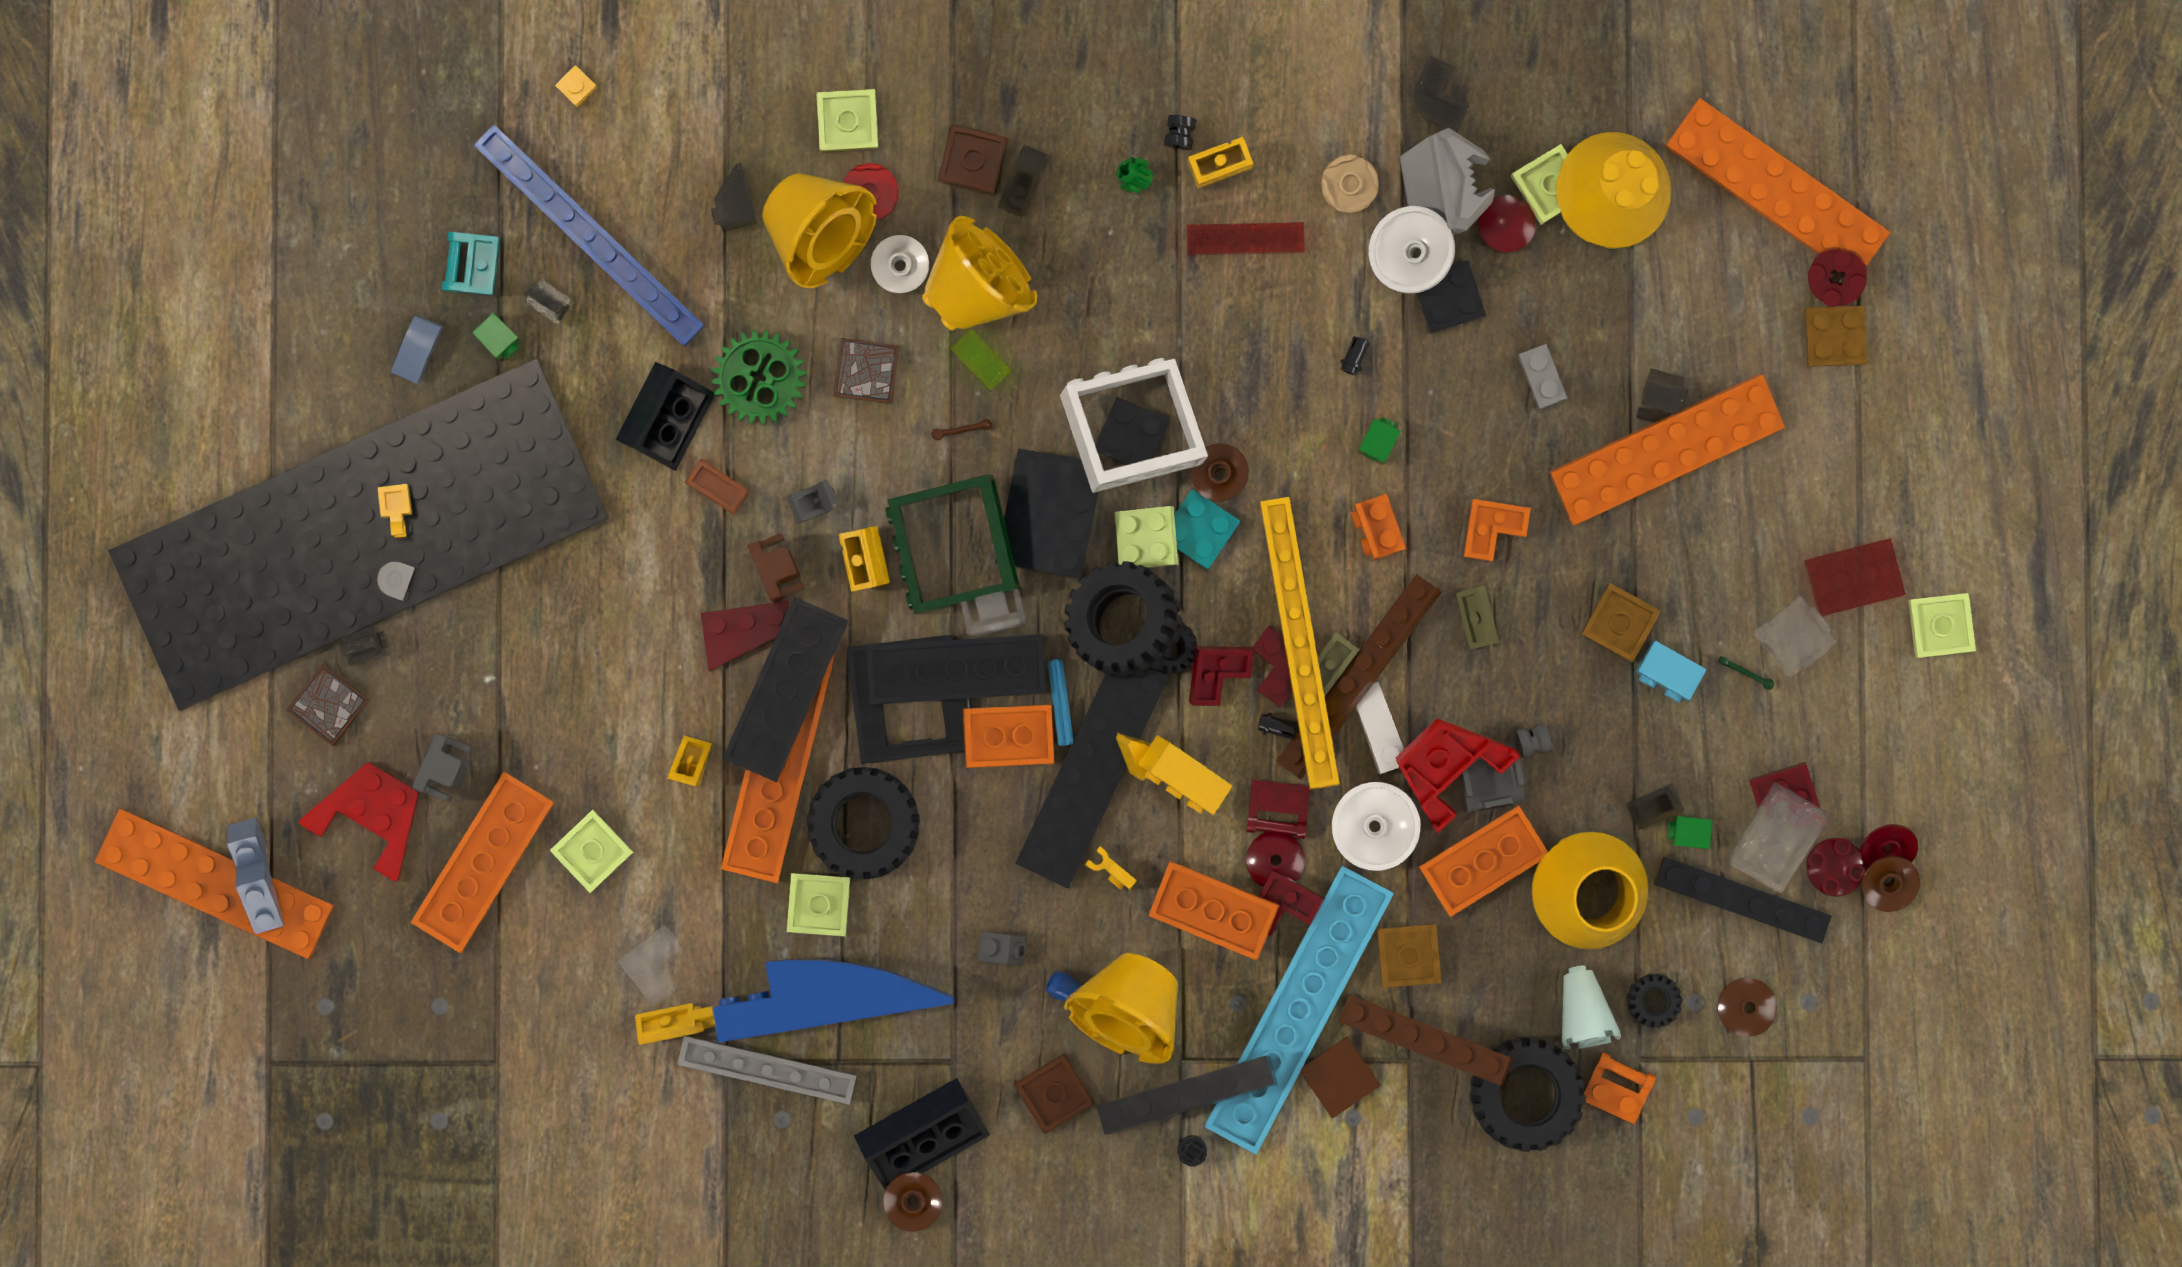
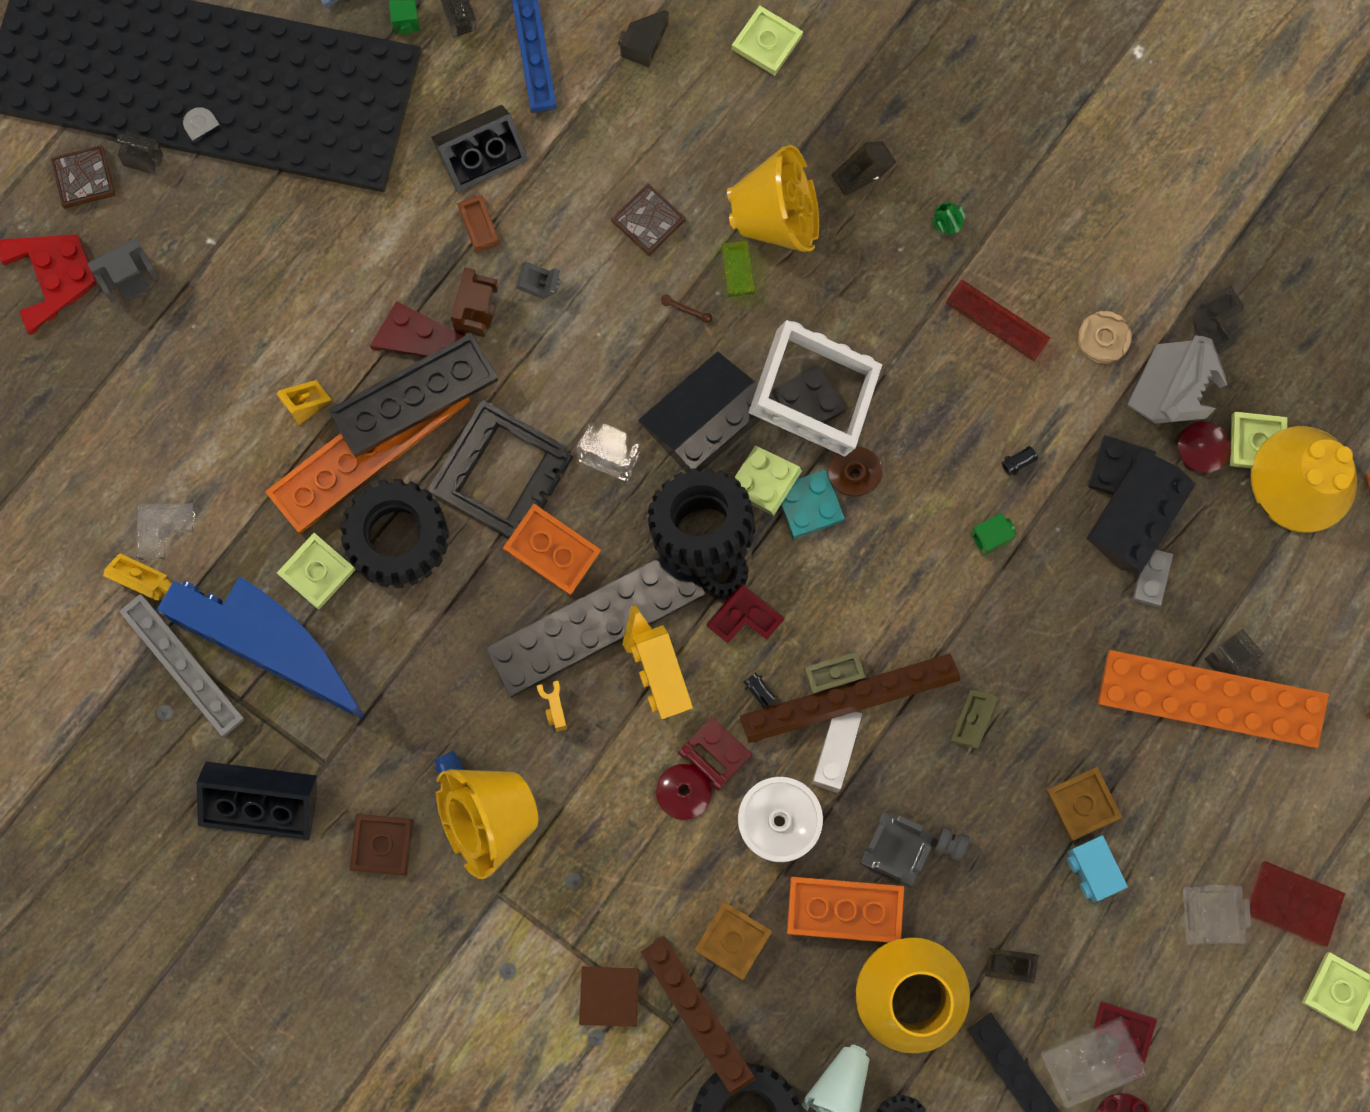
camera: 35 degrees right, 10 degrees down
(395, 504) = (238, 69): yellow plate -> none
(482, 862) = (99, 363): orange plate -> none
(591, 851) = (183, 412): yellowish green plate -> none
(734, 367) = (579, 186): green gear -> none
(818, 226) = (691, 91): yellow cone -> none
(864, 558) = (544, 344): yellow brick -> none
(879, 183) = (745, 100): red tile -> none
(899, 249) = (728, 150): white dish -> none
(912, 1217) = (196, 844): reddish brown dish -> none
(955, 669) = (549, 471): black plate -> none
(972, 159) = (837, 129): reddish brown tile -> none
(998, 533) = (655, 397): dark green window -> none
(1002, 948) = (427, 704): dark grey bracket -> none
(1060, 702) = (609, 554): dark azure axle -> none
(1180, 132) = (1004, 212): black wheel -> none
(1187, 1095) = (480, 919): black brick -> none
(1189, 1147) = (455, 966): black wheel -> none
(1214, 910) = (608, 793): orange plate -> none
(1220, 162) = (1018, 251): yellow brick -> none
(1277, 684) = (803, 647): dark red plate -> none
(1292, 899) = (667, 820): dark red plate -> none
(1299, 643) = (821, 640): yellow plate -> none
(1303, 1003) = (615, 919): medium azure plate -> none
(1378, 527) = (946, 598): orange bracket -> none
(1397, 239) = (1117, 399): white dish -> none
(1440, 757) = (870, 800): red wing -> none
(1486, 521) = (1035, 653): orange plate -> none
(1493, 328) = (1141, 512): none -> black slope
(1689, 832) = (1024, 1007): green brick -> none
(1767, 683) = (1168, 937): dark green hinge -> none

